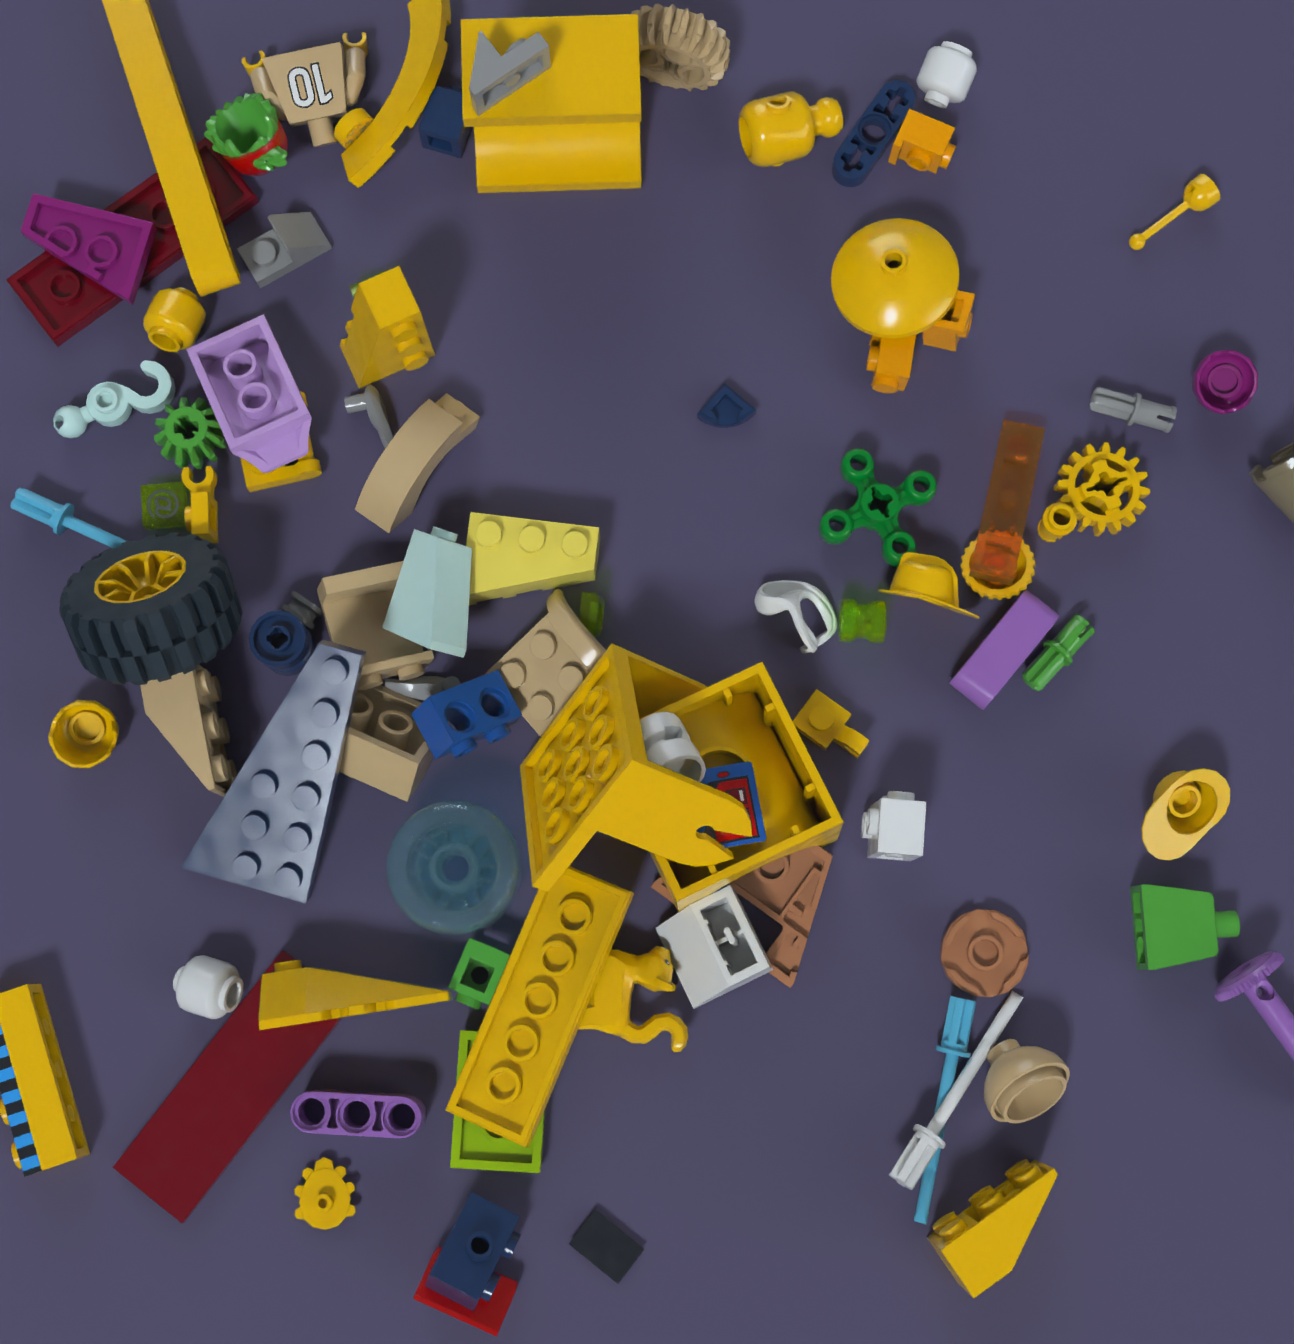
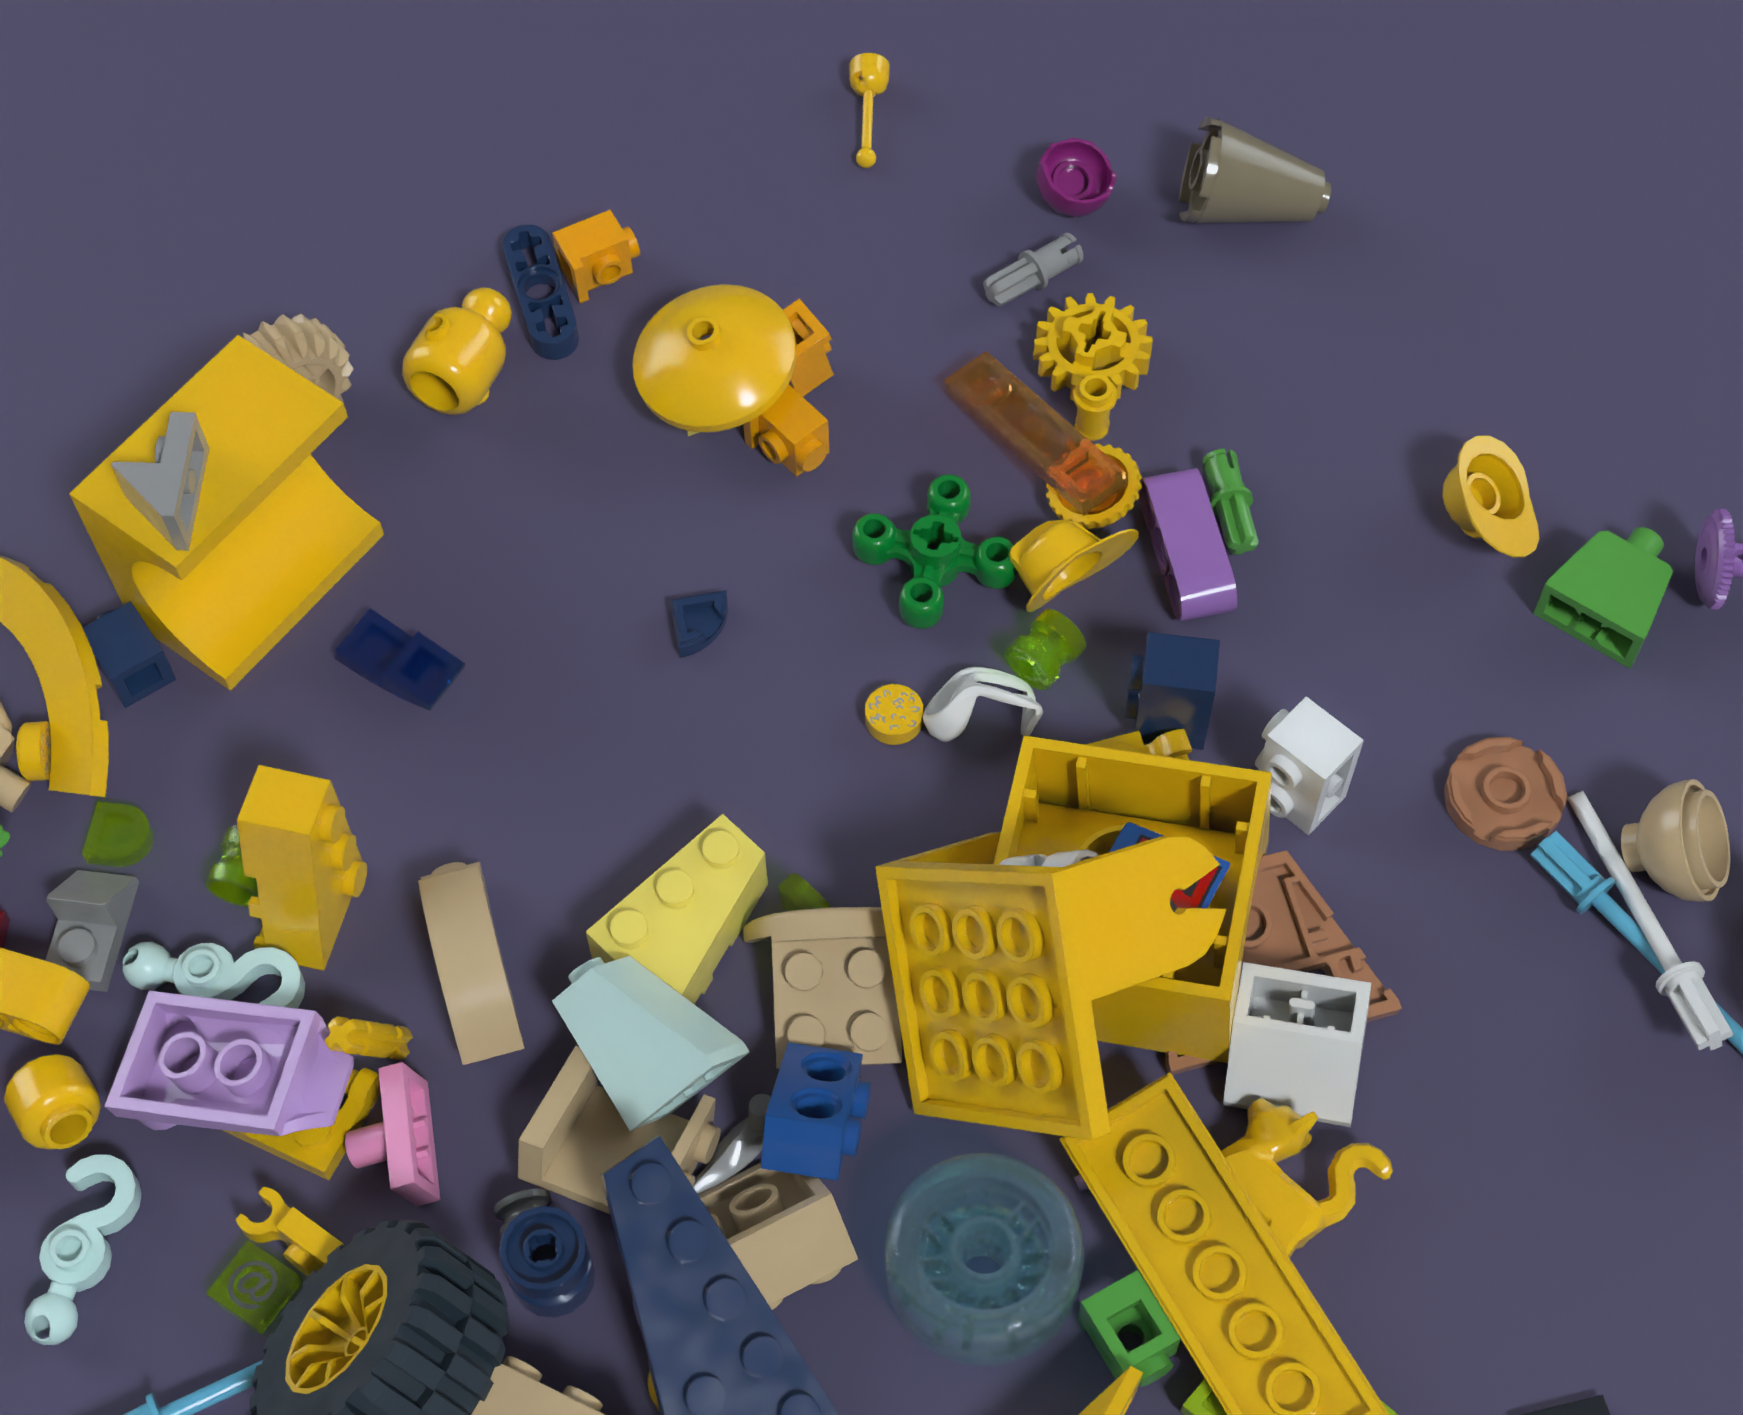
camera: 50 degrees left, 20 degrees down
(177, 426) = (201, 1206): bright green gear -> none
(294, 511) = (402, 1138): none -> bright pink tile
(305, 337) = (212, 972): none -> light aqua piece
(326, 449) = (368, 1038): none -> yellow axle
(346, 214) = (117, 835): none -> clear neon green tile
(376, 411) = (376, 967): light grey bar -> none
(565, 268) = (397, 662): none -> clear blue slope
(753, 566) = (894, 714): none -> yellow tile
(885, 716) = (1173, 687): none -> dark blue brick
(946, 74) = (546, 187): white head -> none

